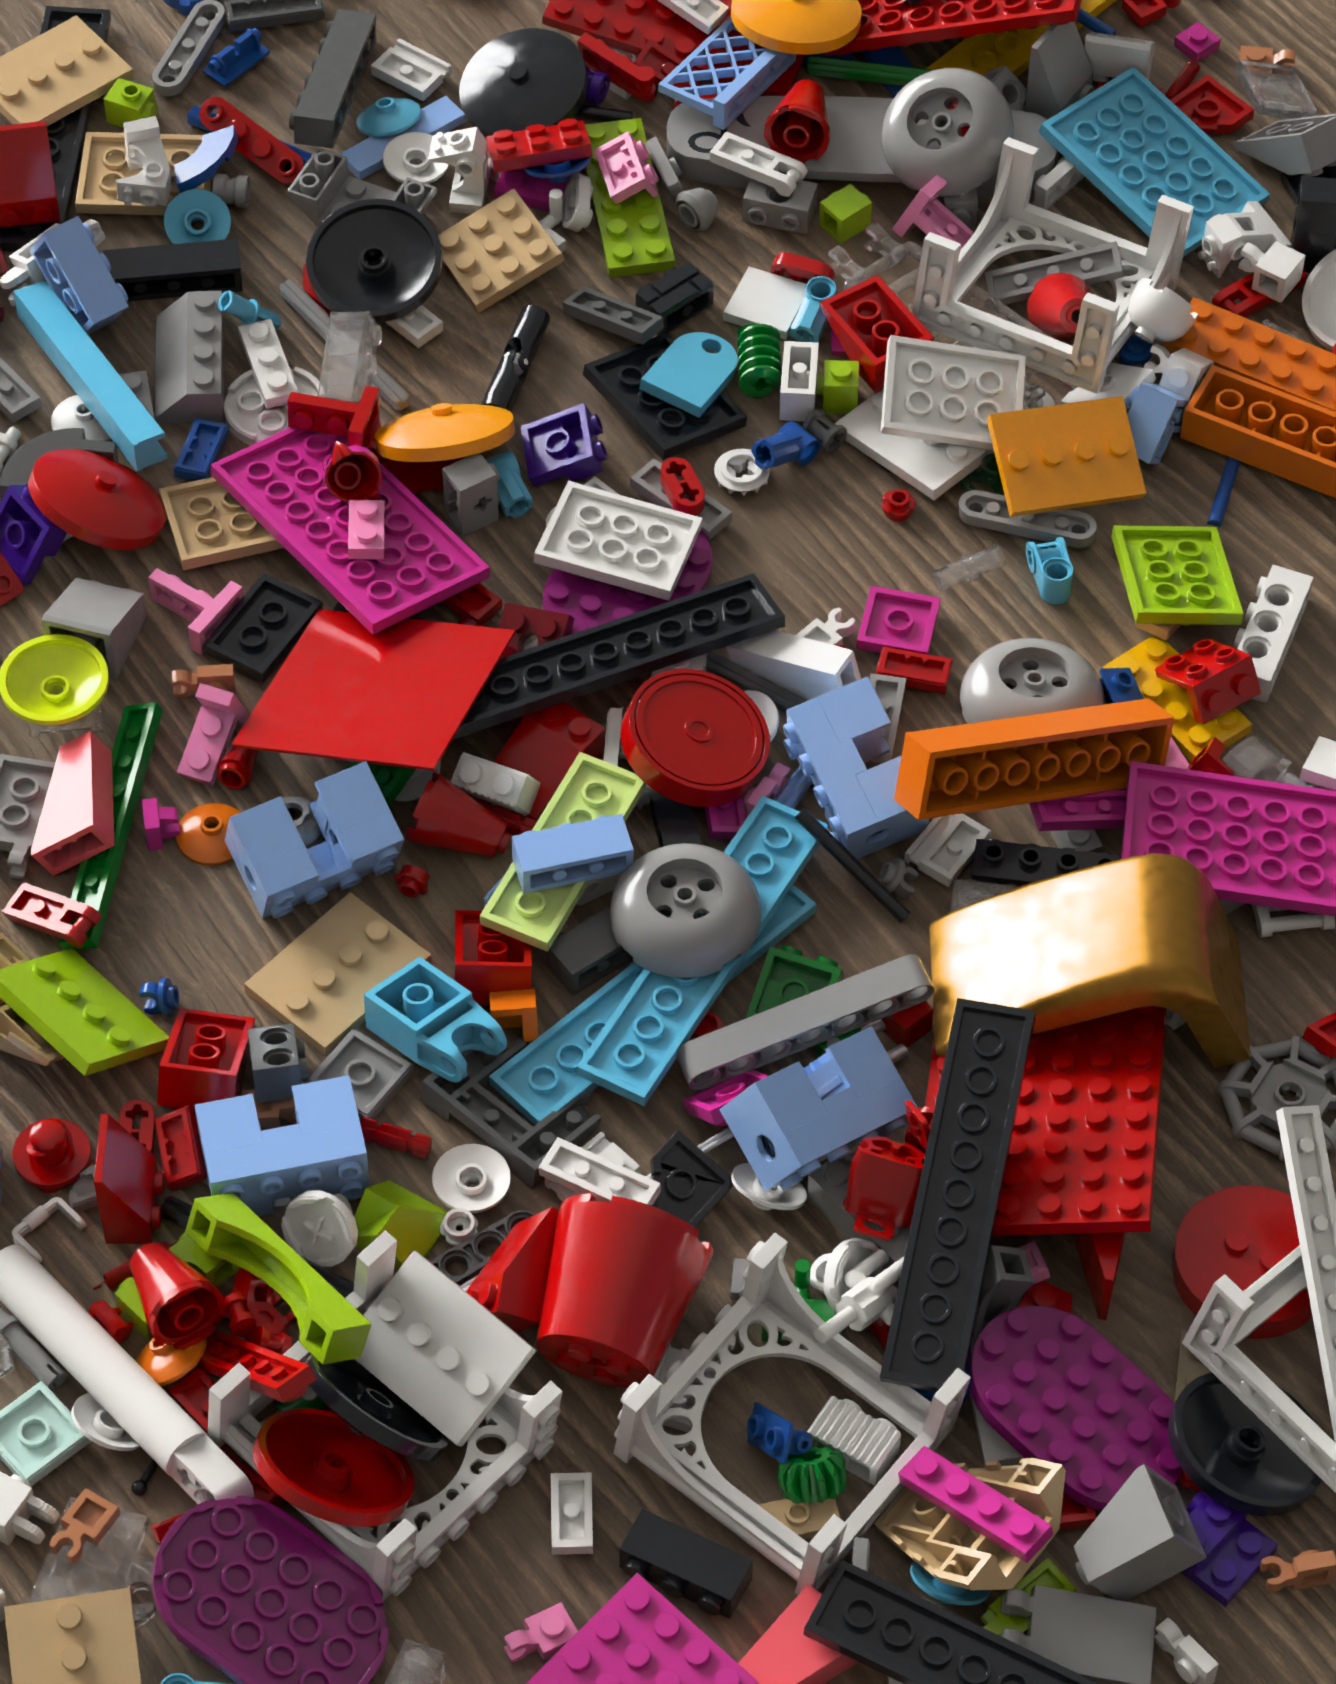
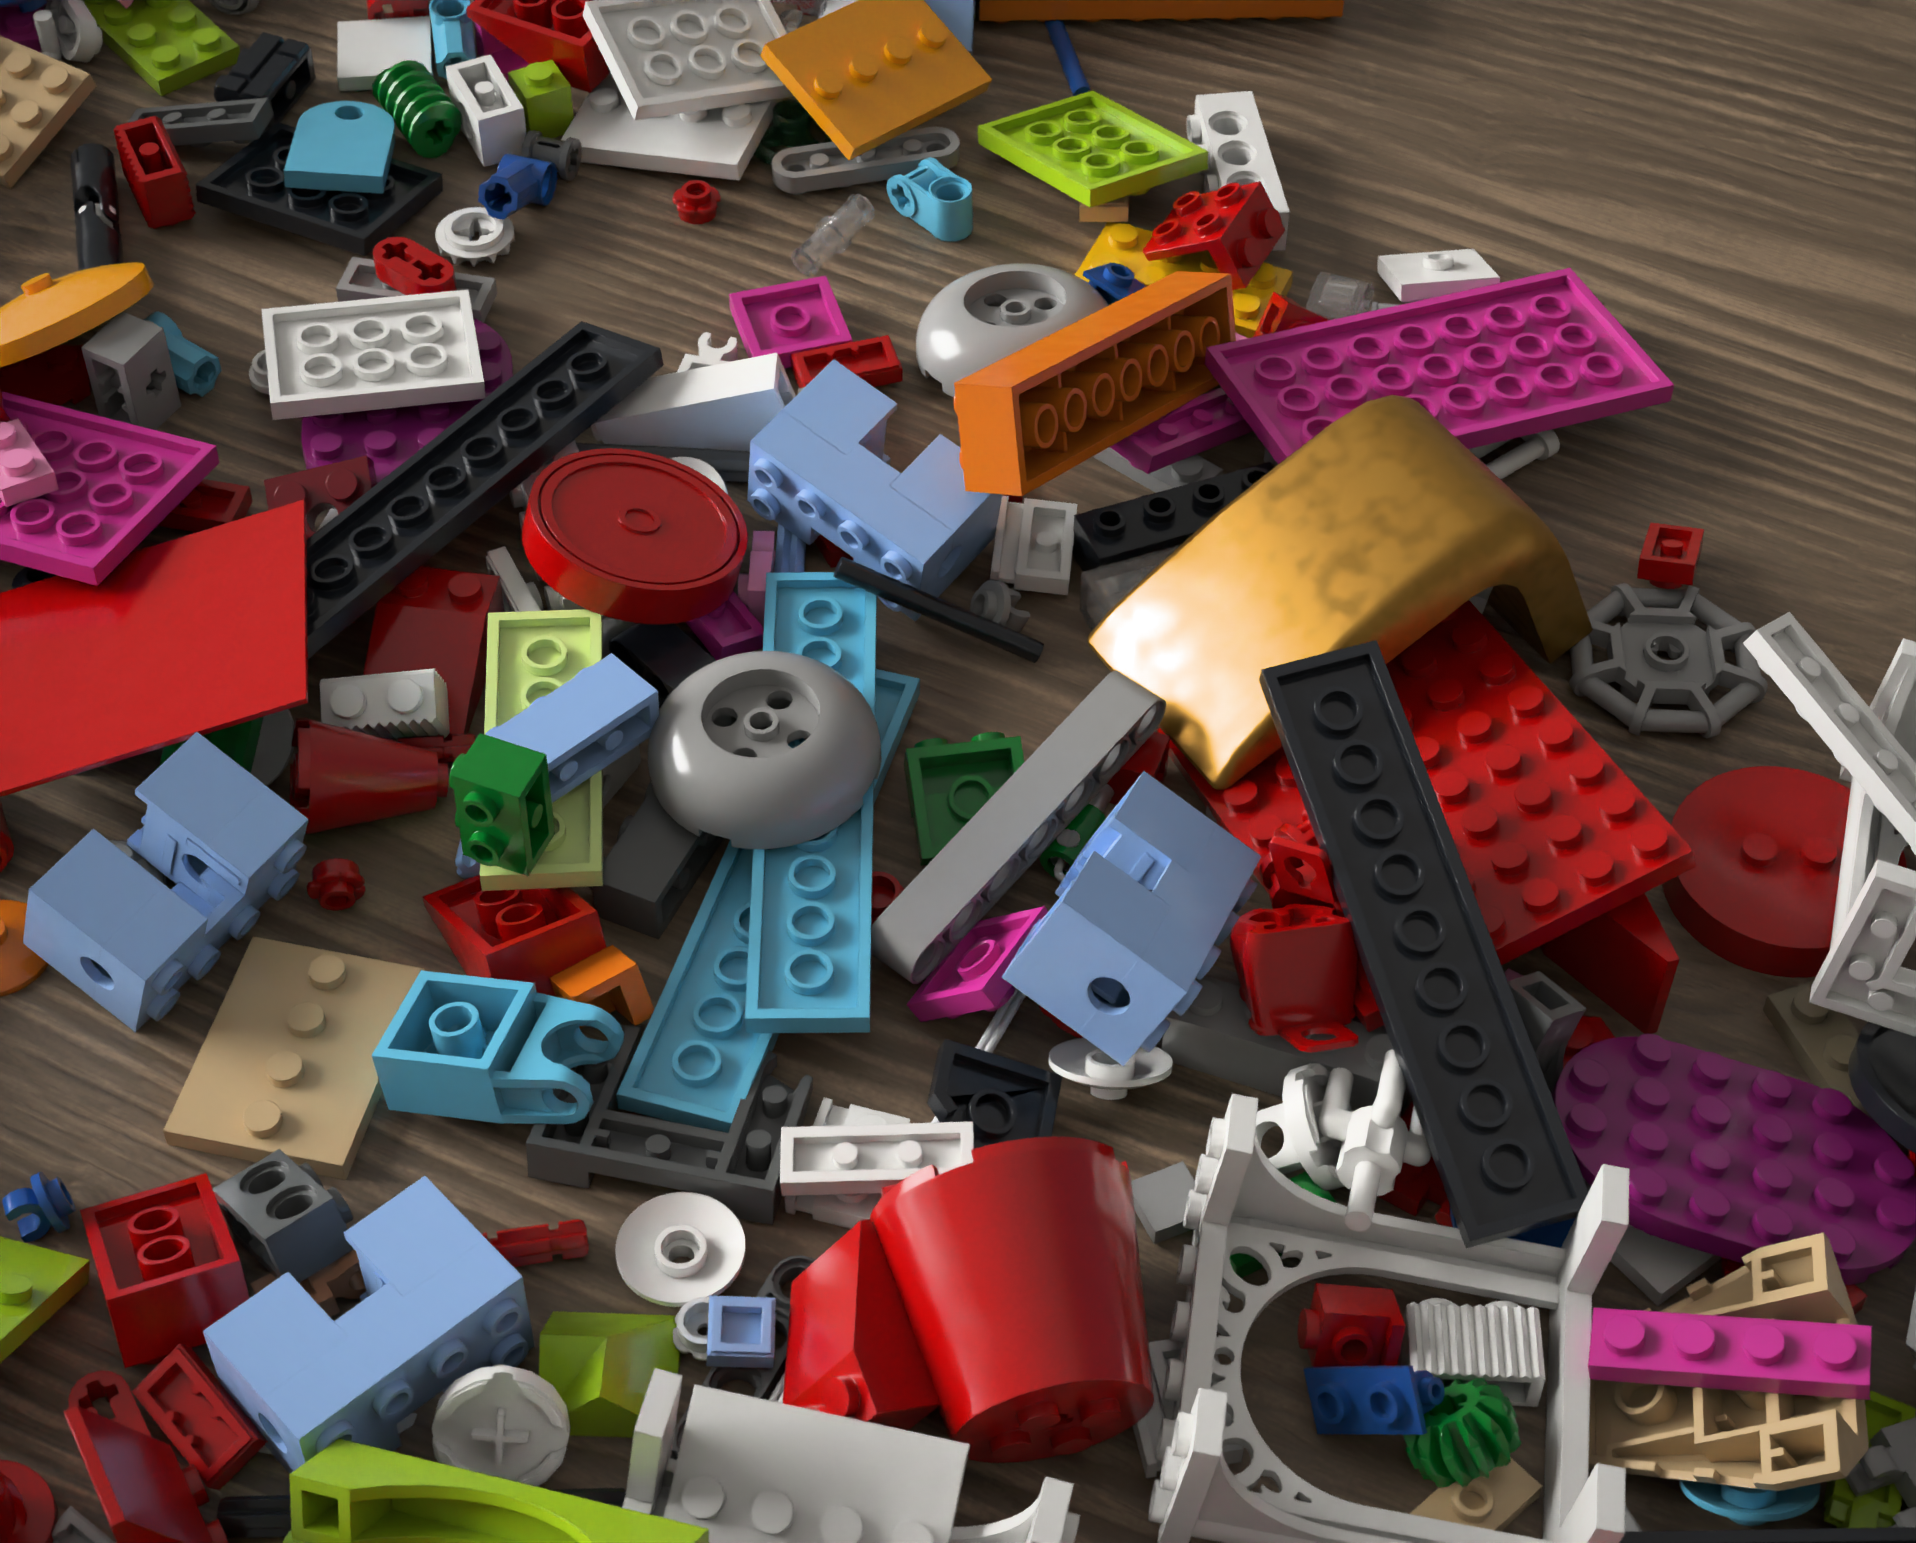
camera: 30 degrees left, 5 degrees down
(372, 1068) = (402, 1153): light grey tile -> none
(472, 1237) = (741, 1332): none -> light blue tile
(505, 882) = (503, 804): none -> green brick
(564, 446) = (223, 284): dark purple plate -> none
(565, 343) = (154, 172): none -> red brick
(793, 1393) = (1351, 1326): none -> red brick

